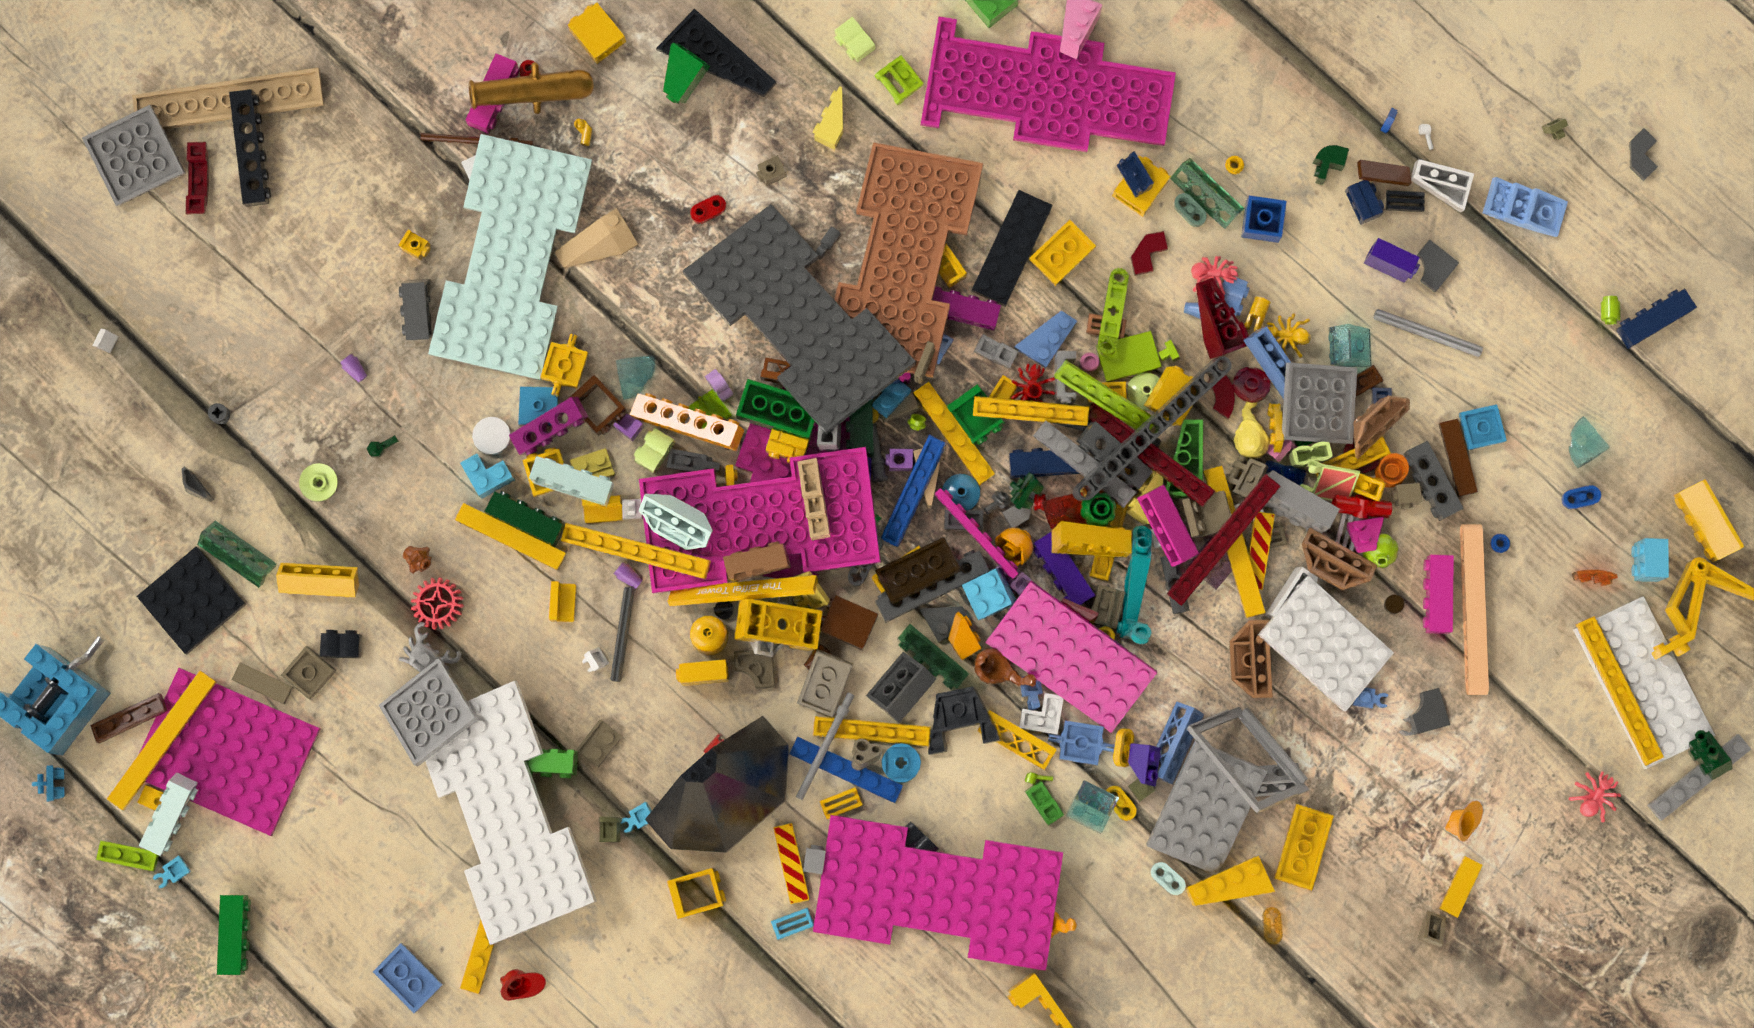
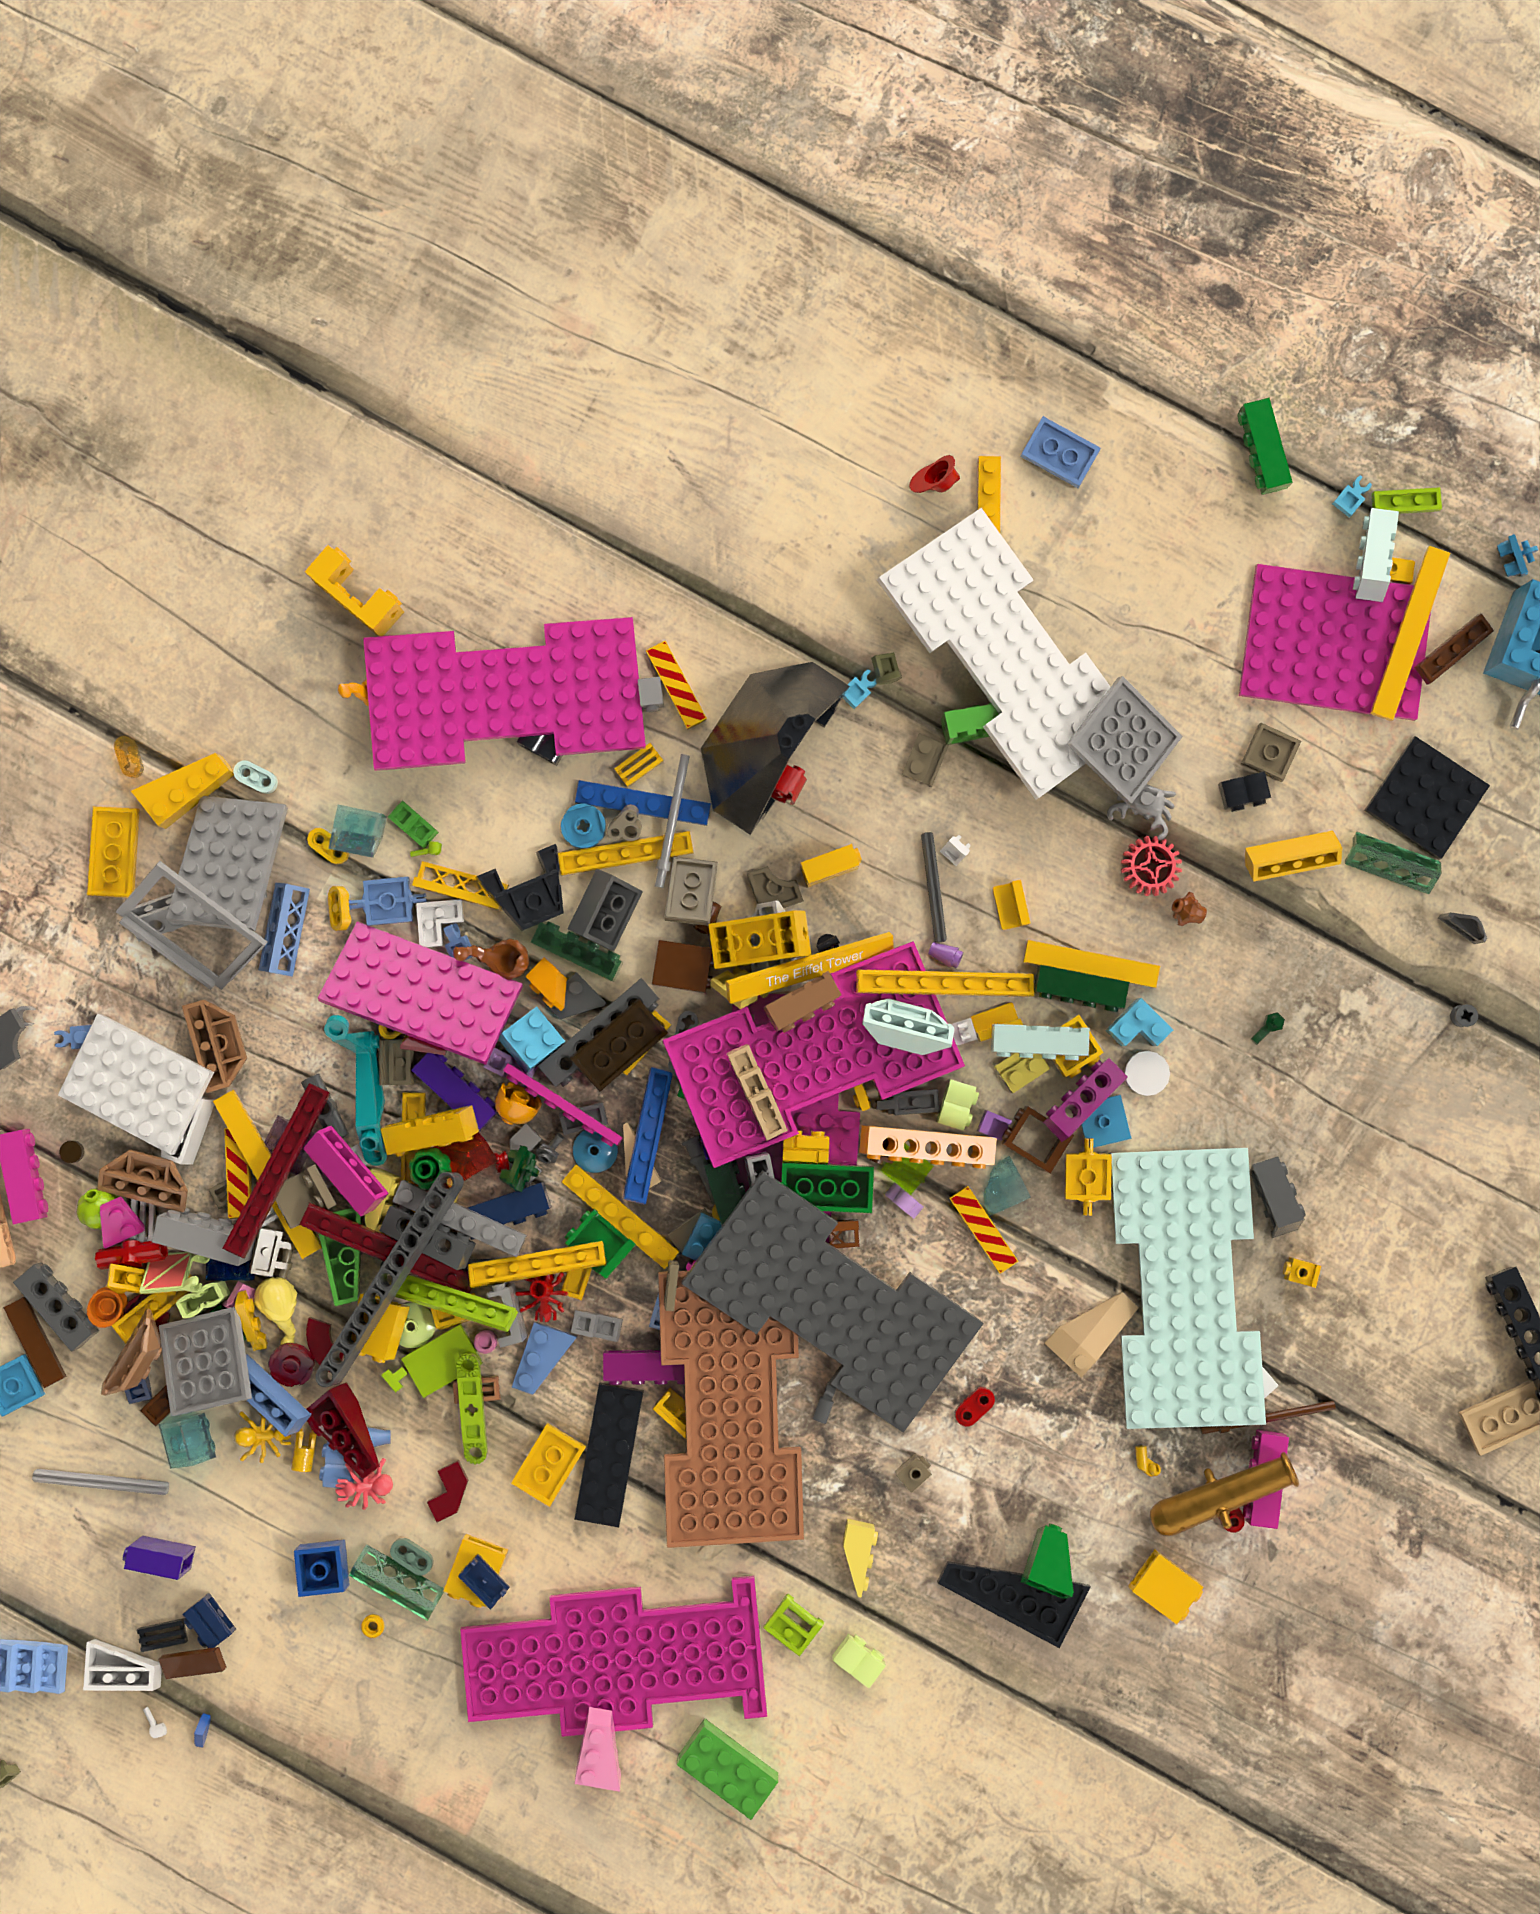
camera: 165 degrees right, 5 degrees up
(262, 683) = (1318, 727): dark tan tile -> none
(310, 477) = (1337, 964): yellowish green dish -> none
(353, 368) = (1327, 1109): medium lavender cone -> none
(661, 346) = (983, 1229): none -> tile
(676, 897) = (791, 612): yellow window -> none
(711, 643) = (828, 918): yellow cylinder -> none
(777, 929) = (663, 627): medium azure tile -> none
(907, 454) = (663, 1168): medium lavender brick -> none
(917, 422) = (665, 1218): lime plate -> none
(1140, 790) = (309, 869): olive plate -> none
(1145, 762) = (310, 896): dark purple slope -> none
(1329, 157) = (259, 1666): dark green brick -> none
(1406, 495) = (83, 1281): dark tan brick -> none
(1436, 265) = (107, 1566): dark grey tile -> none

